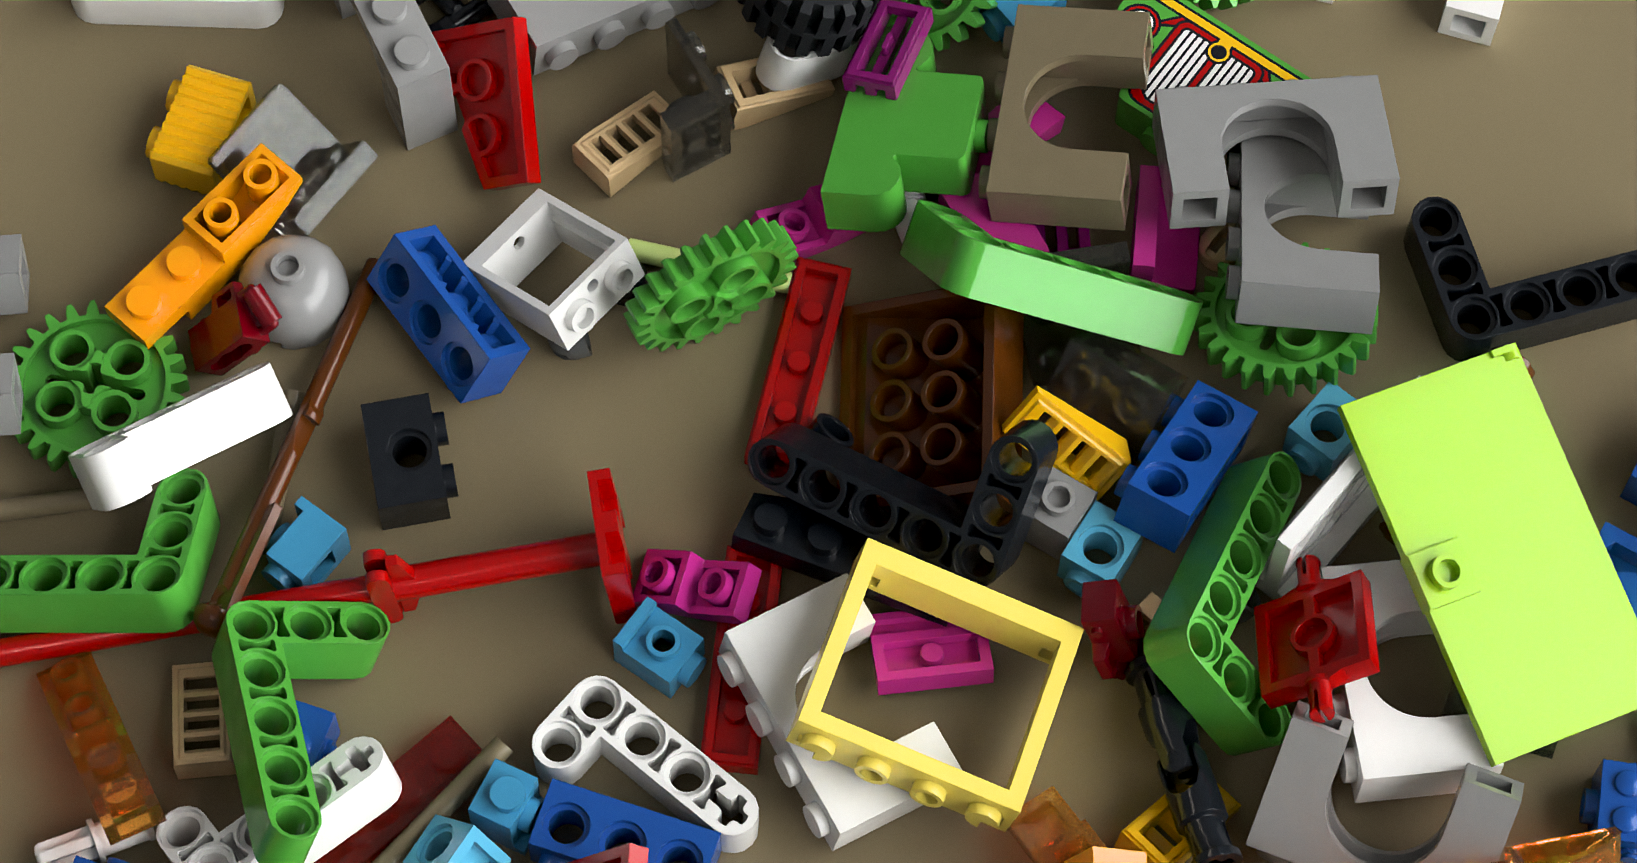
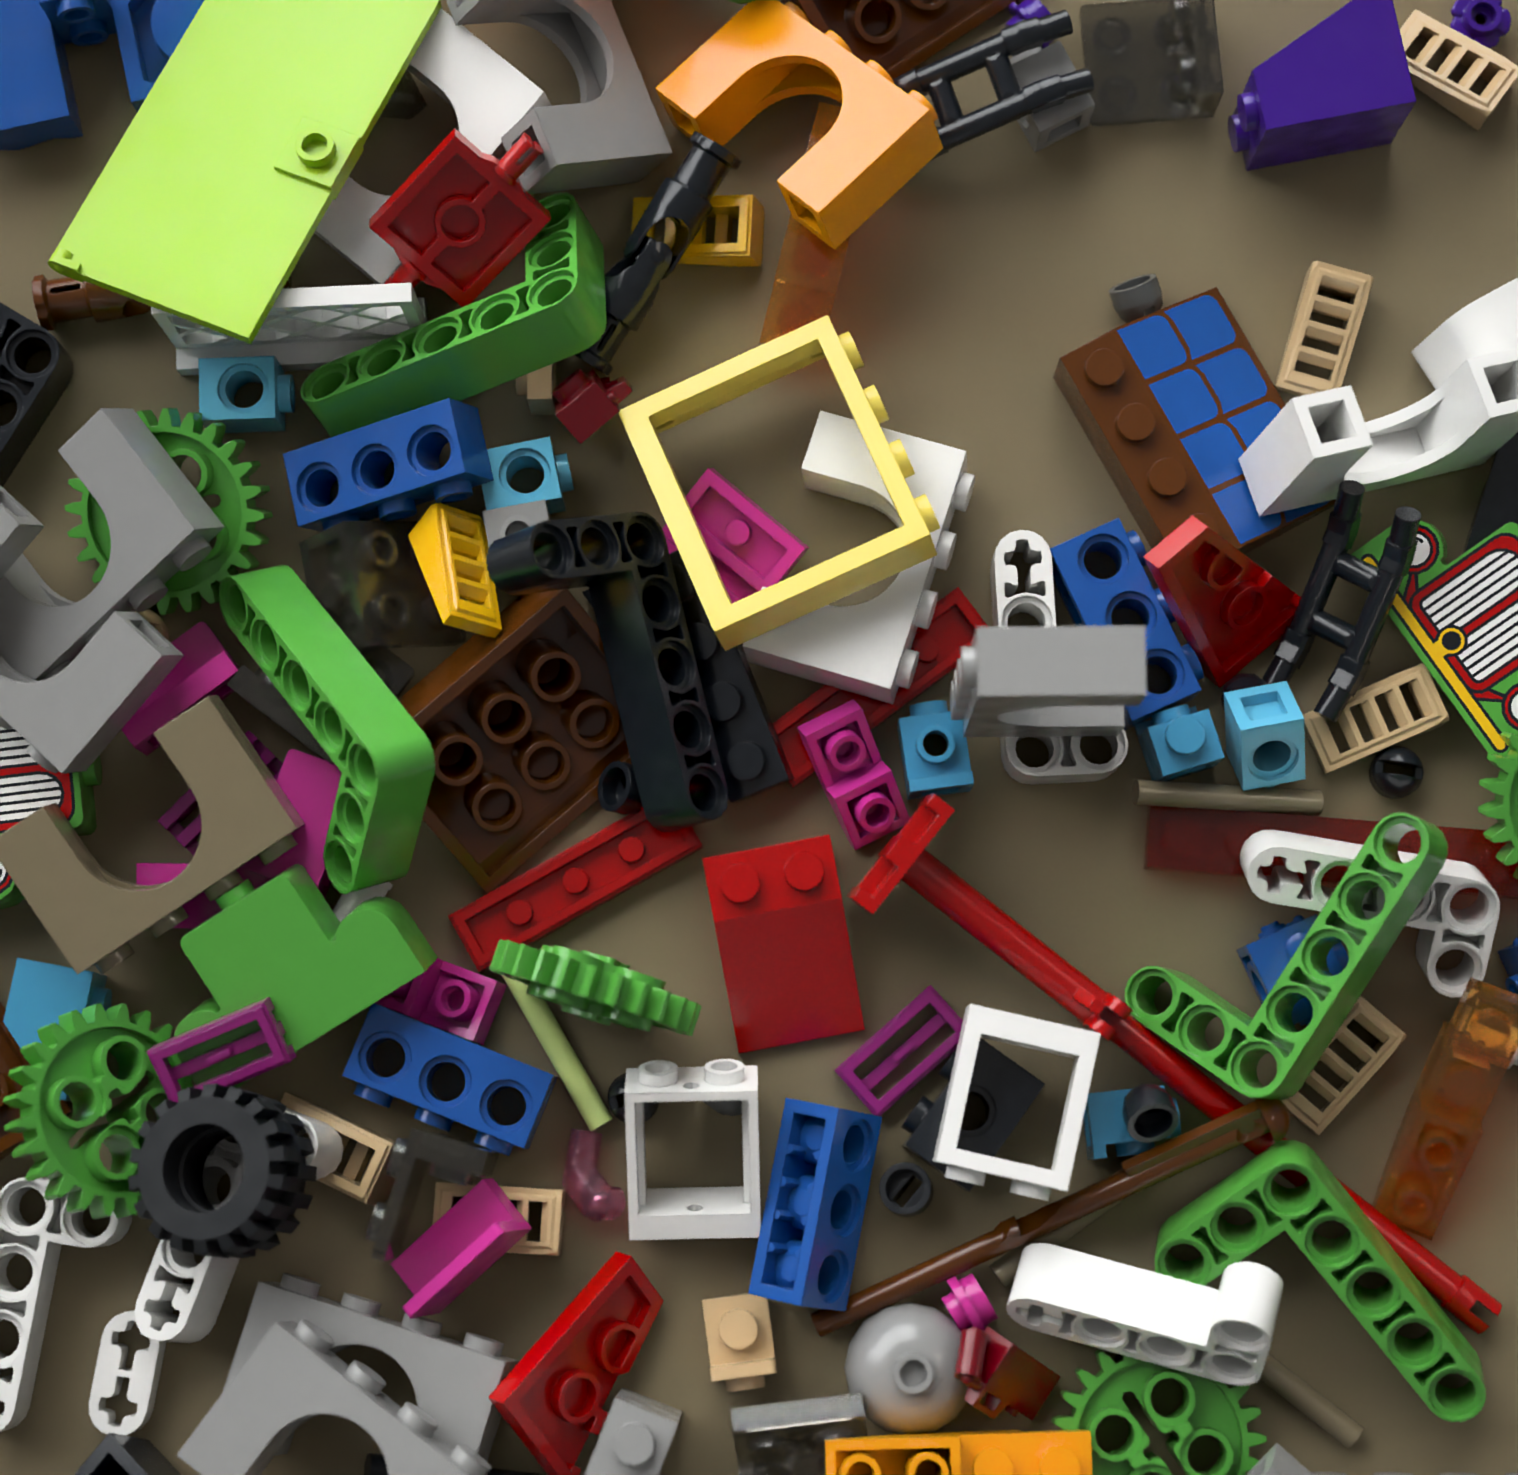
camera: 130 degrees left, 15 degrees up
(294, 355) = (968, 1303): none -> dark pink plate
(294, 544) = (1149, 1113): none -> black hinge
(406, 204) = (739, 1340): none -> tan bracket
(412, 381) = (896, 1182): none -> black hinge
(413, 515) = (1031, 1034): none -> white window
(486, 507) = (862, 1088): none -> magenta tile
(607, 208) = (584, 1182): none -> clear pink arm
(622, 684) = (1049, 680): none -> light grey arch
(634, 95) = (459, 1248): none -> dark pink panel
(652, 441) = (784, 943): none -> red slope
(731, 201) = (425, 1053): none -> blue brick

